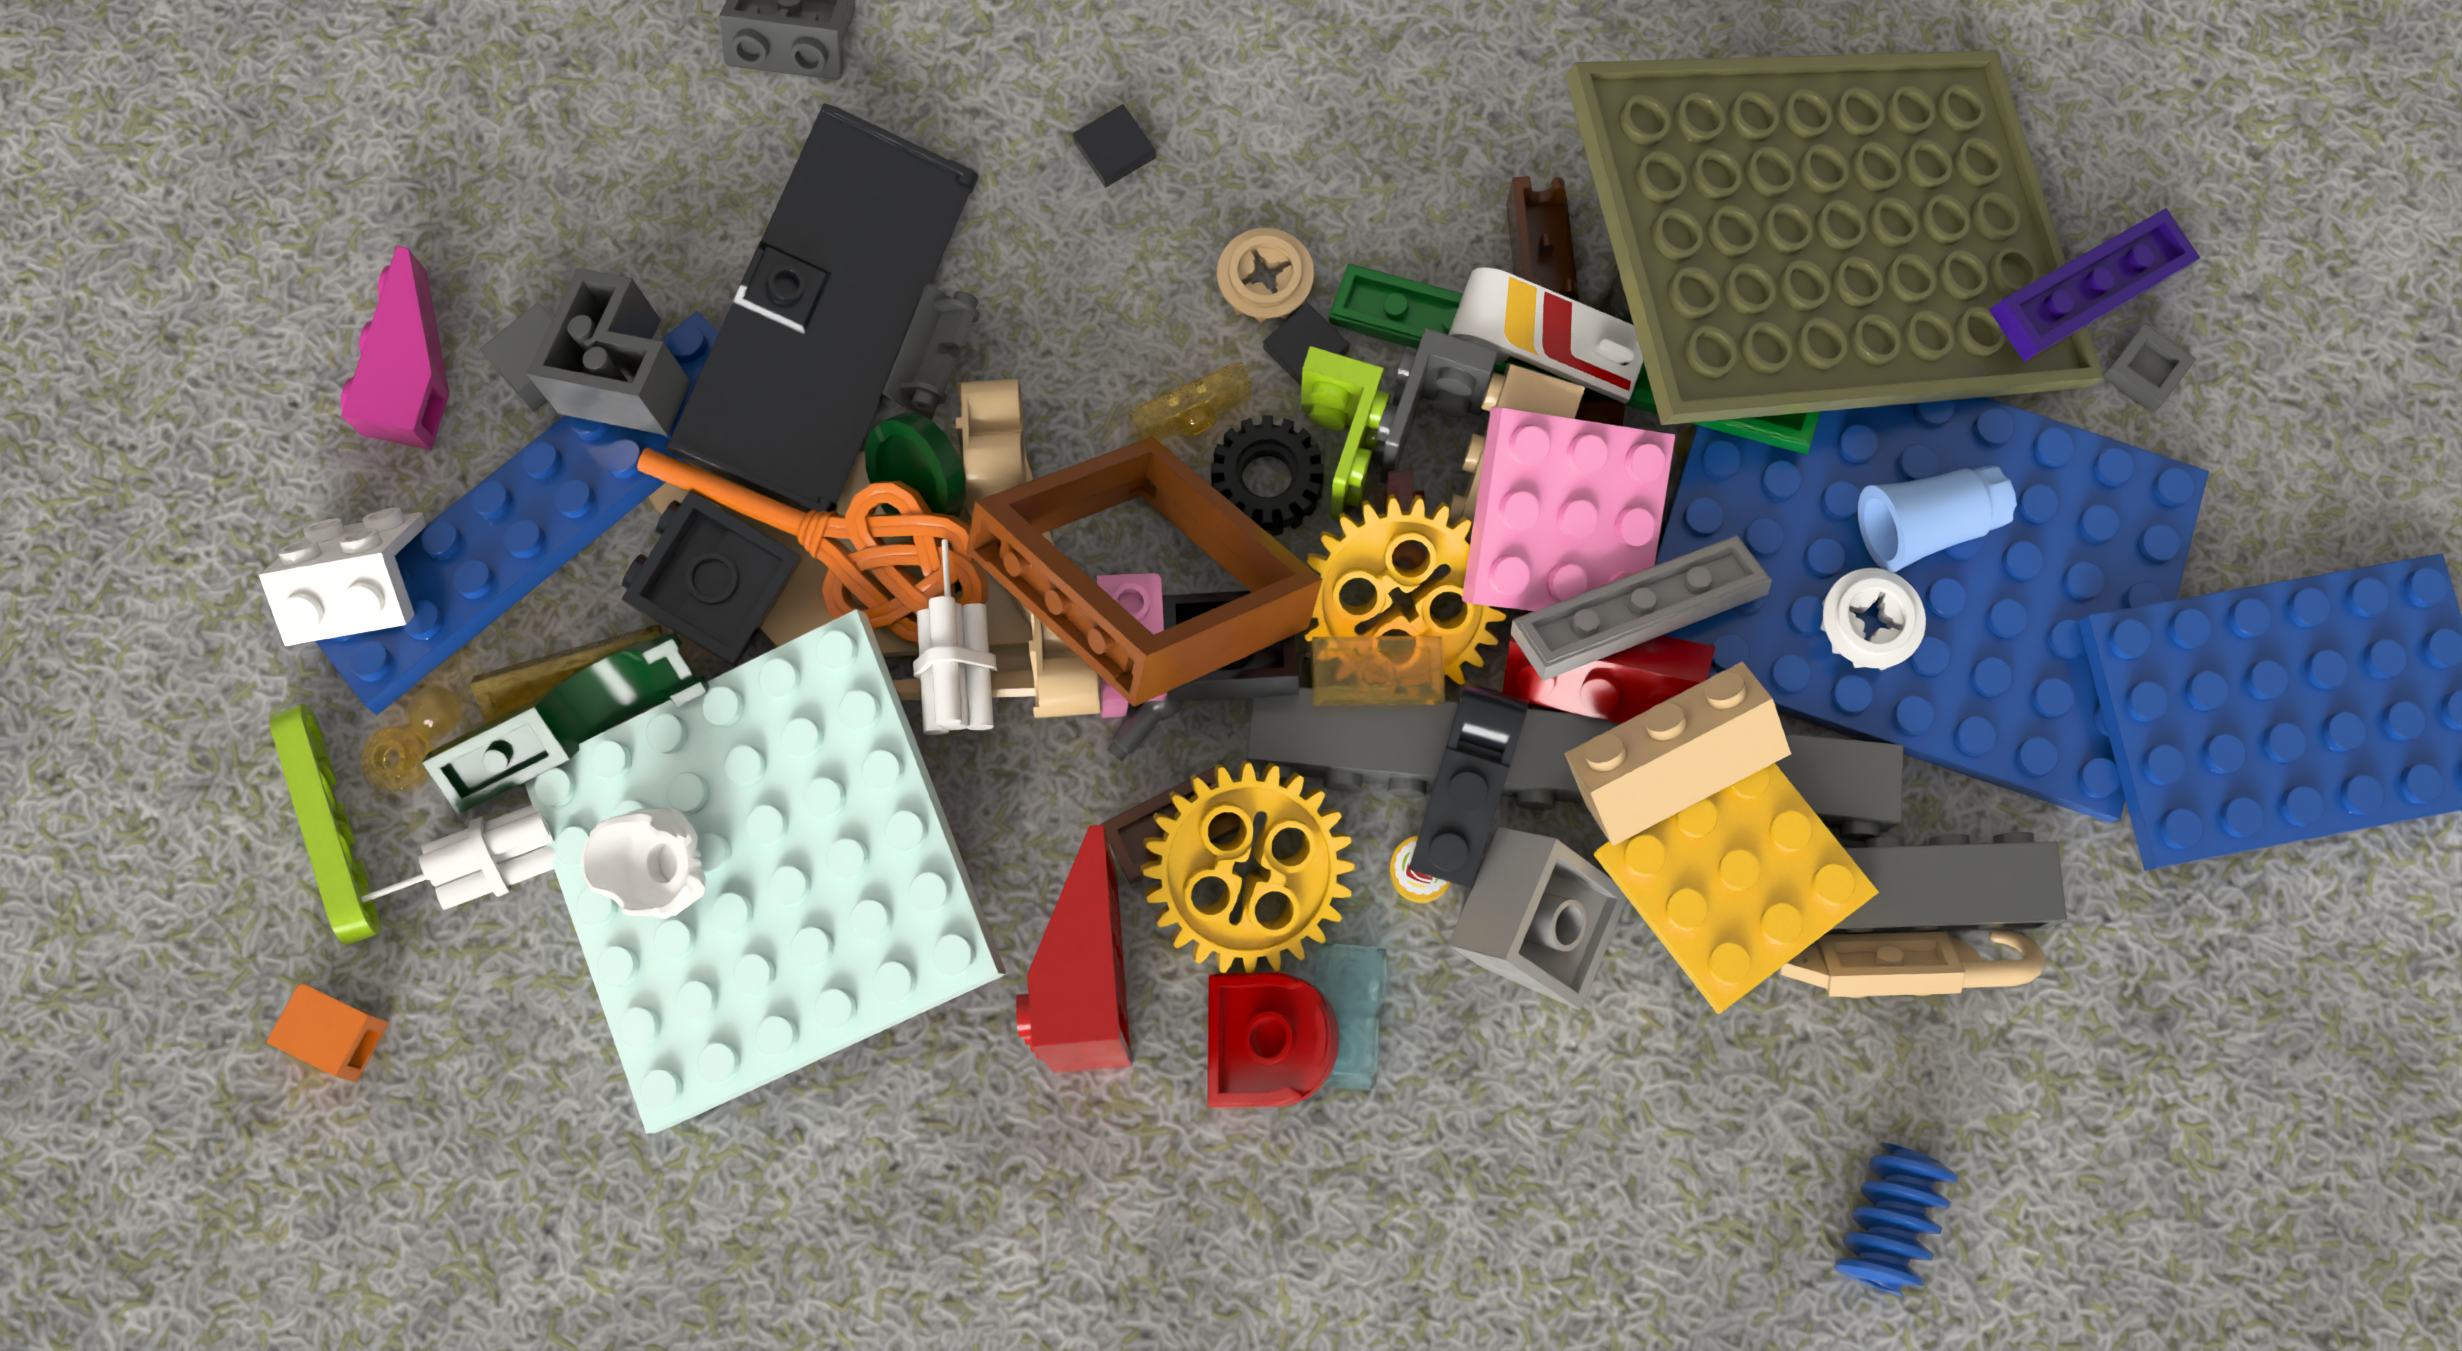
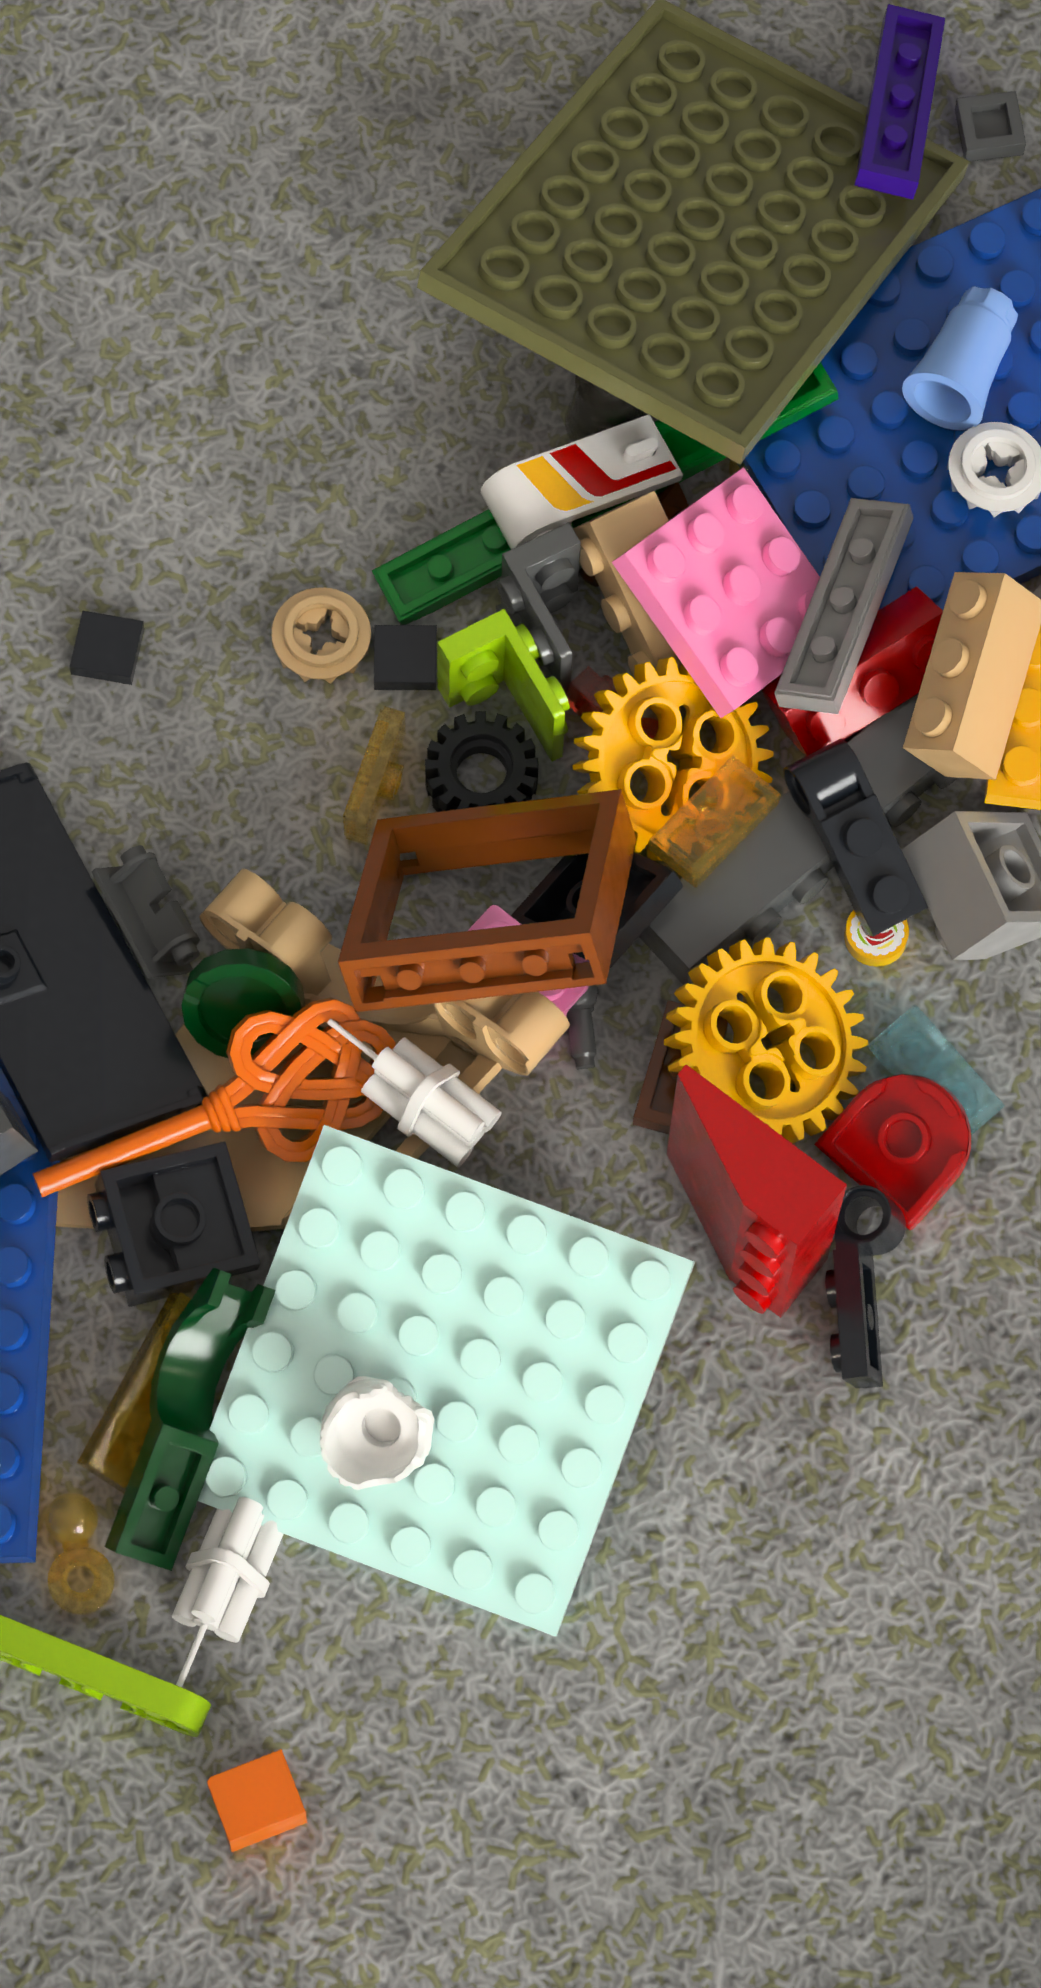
camera: 50 degrees left, 5 degrees down
(1117, 1107) = (853, 1288): none -> black plate
(1542, 236) = (488, 425): reddish brown hinge -> none

